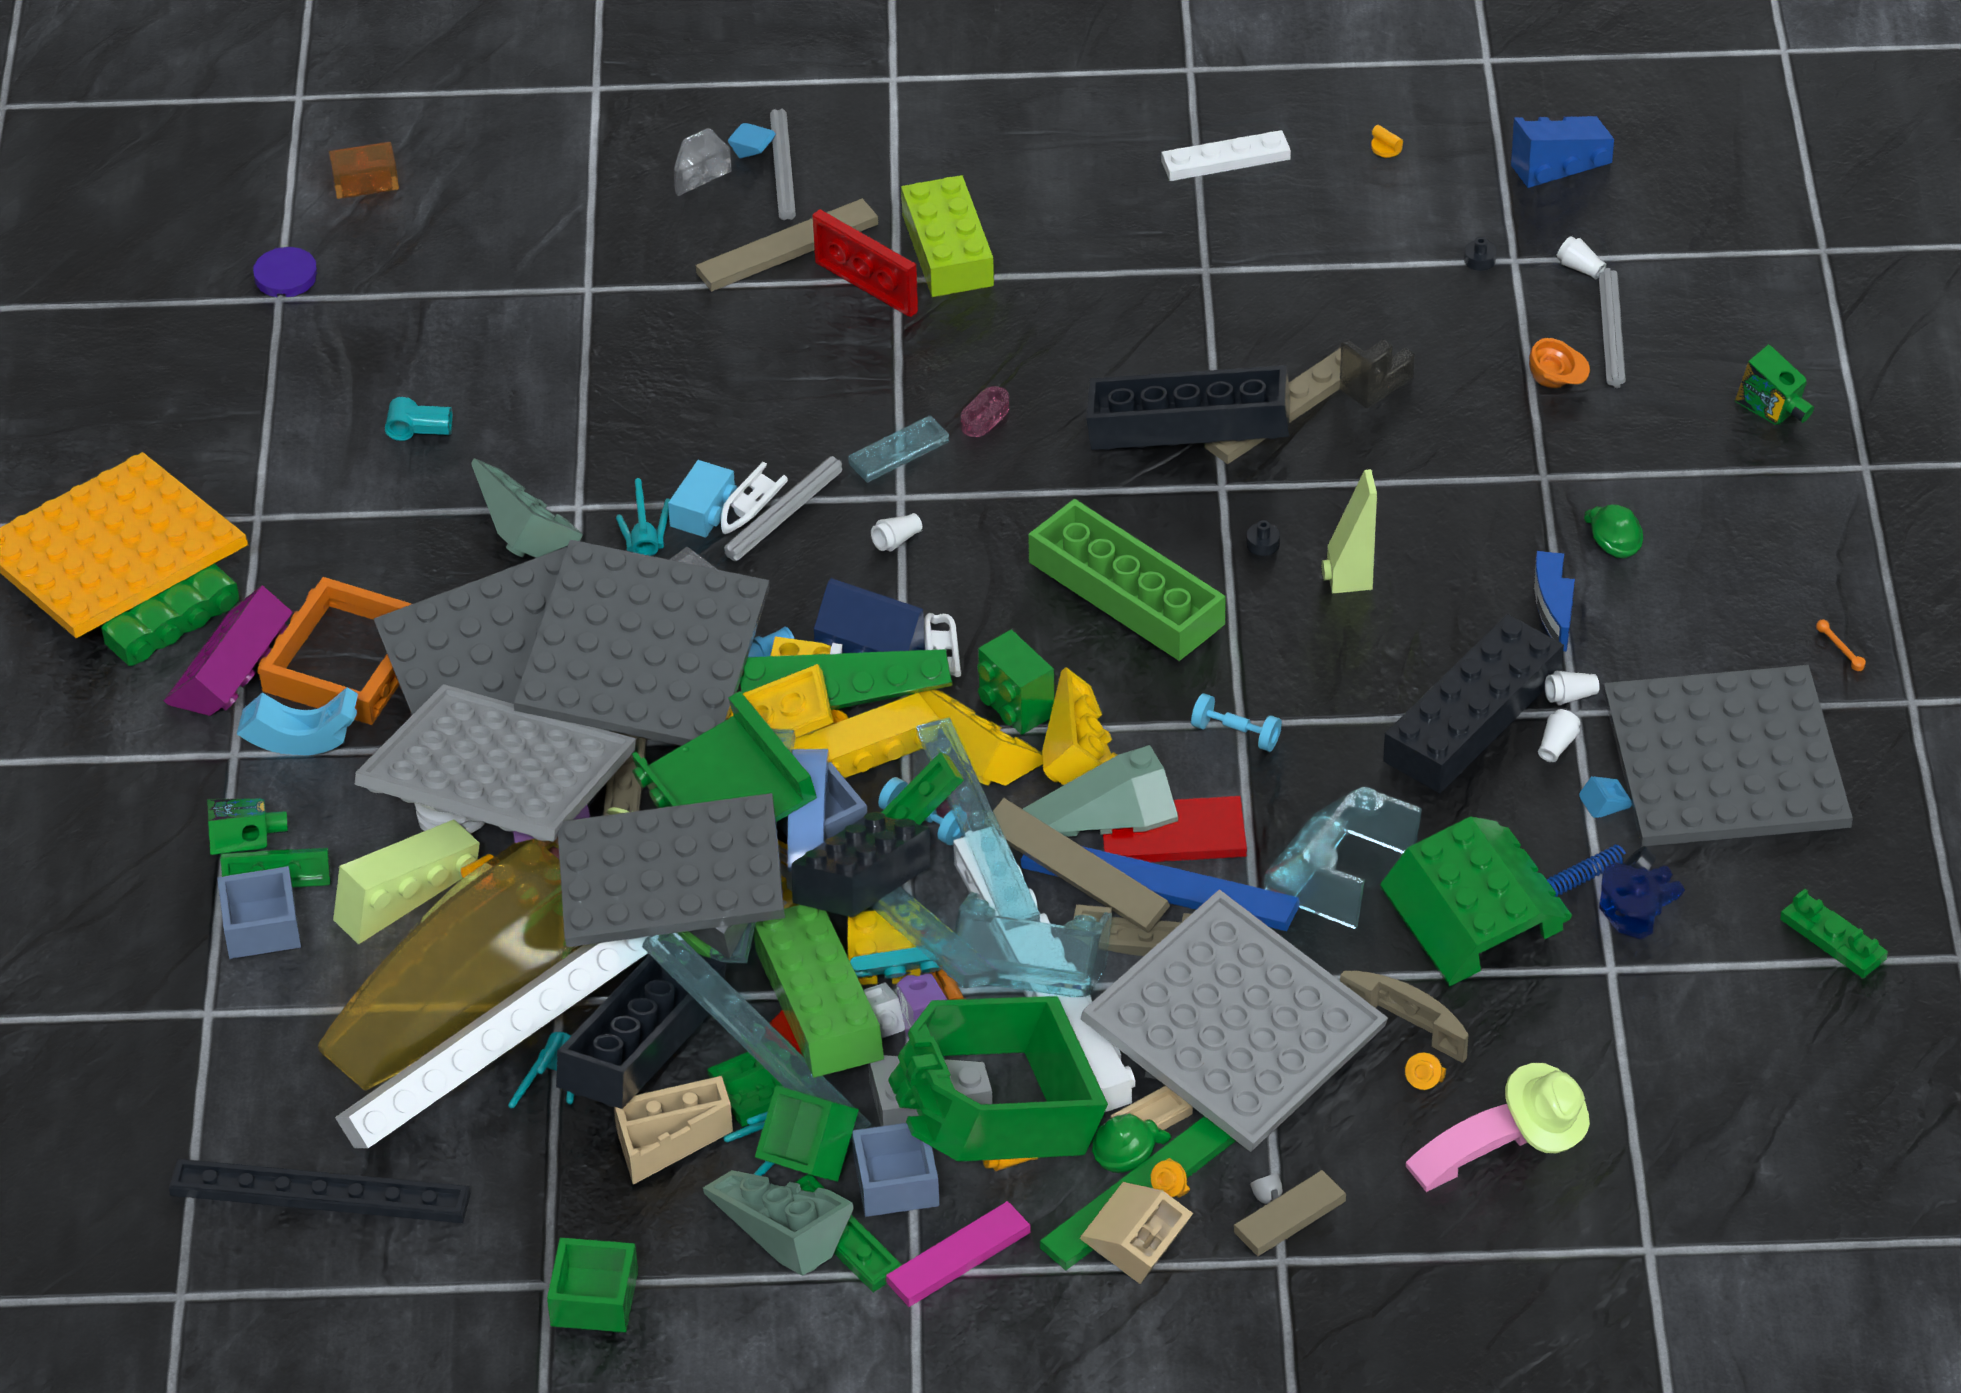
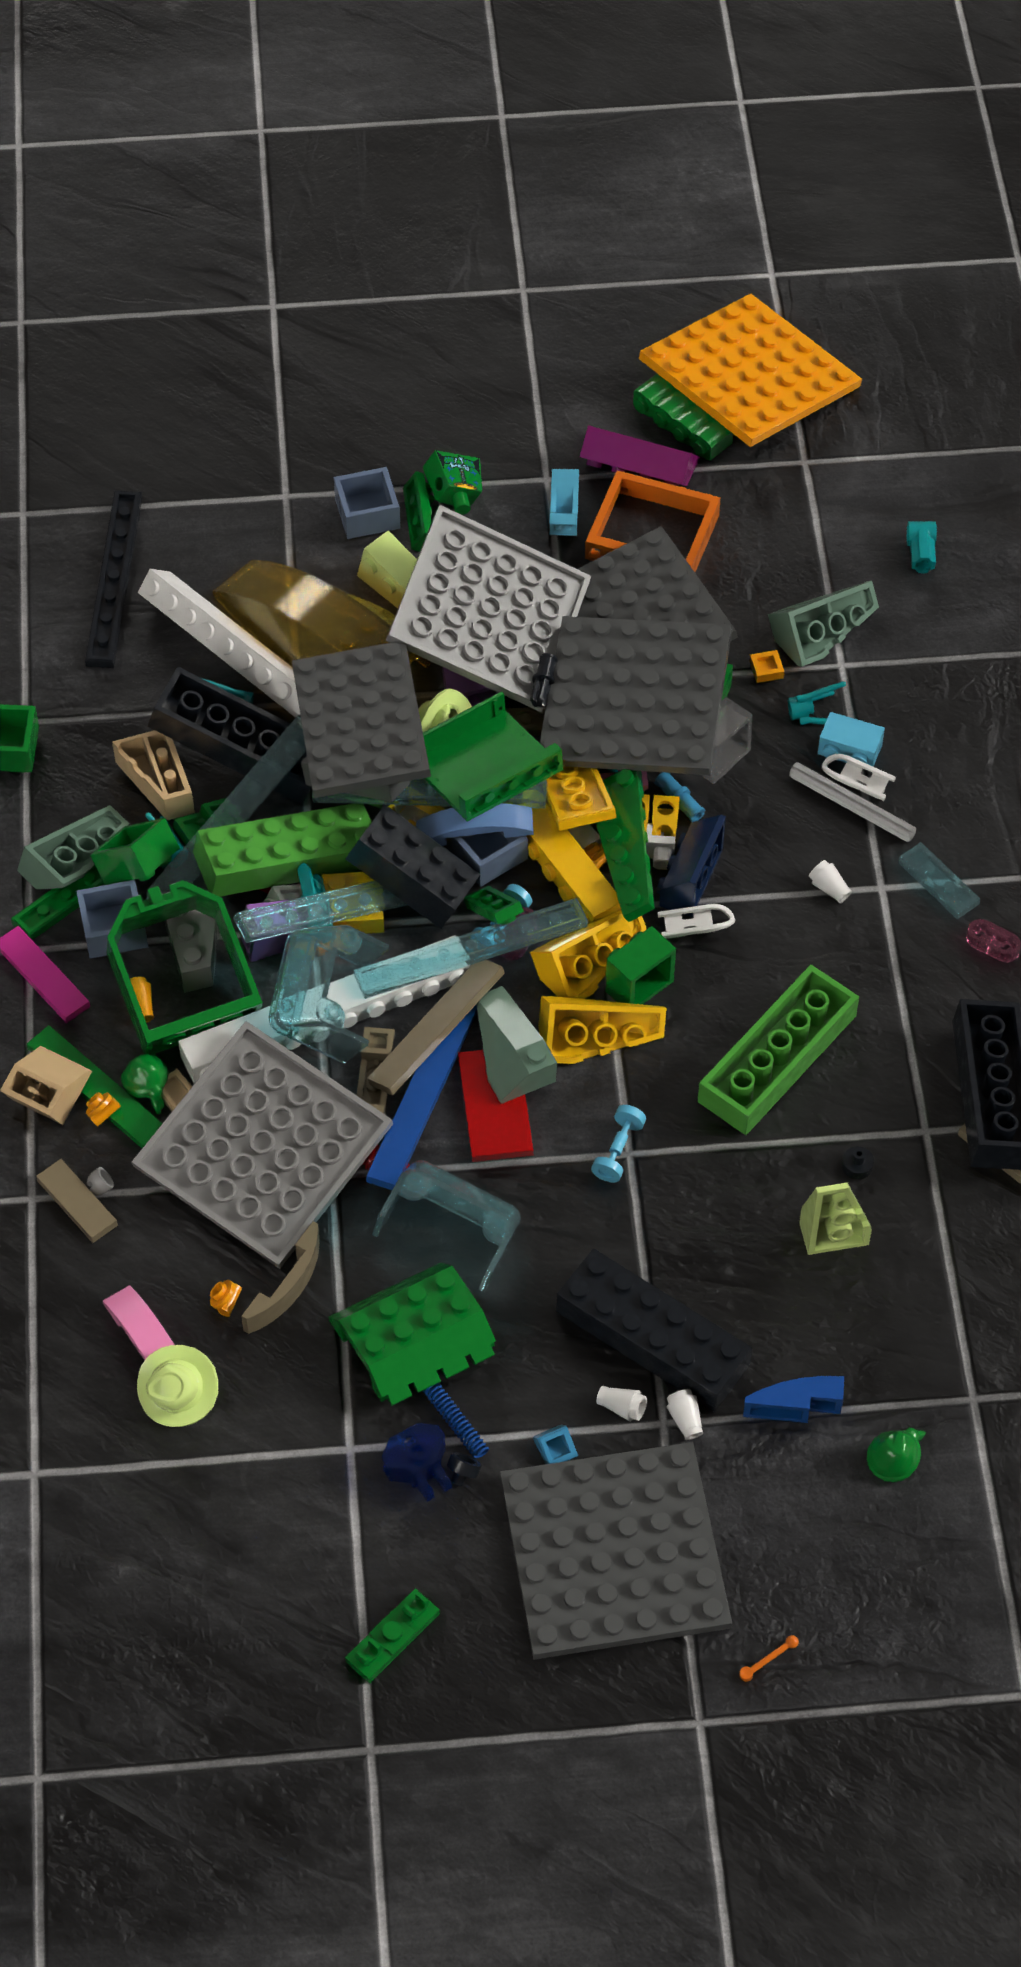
camera: 85 degrees right, 10 degrees up
(607, 727) = (543, 679): none -> black axle

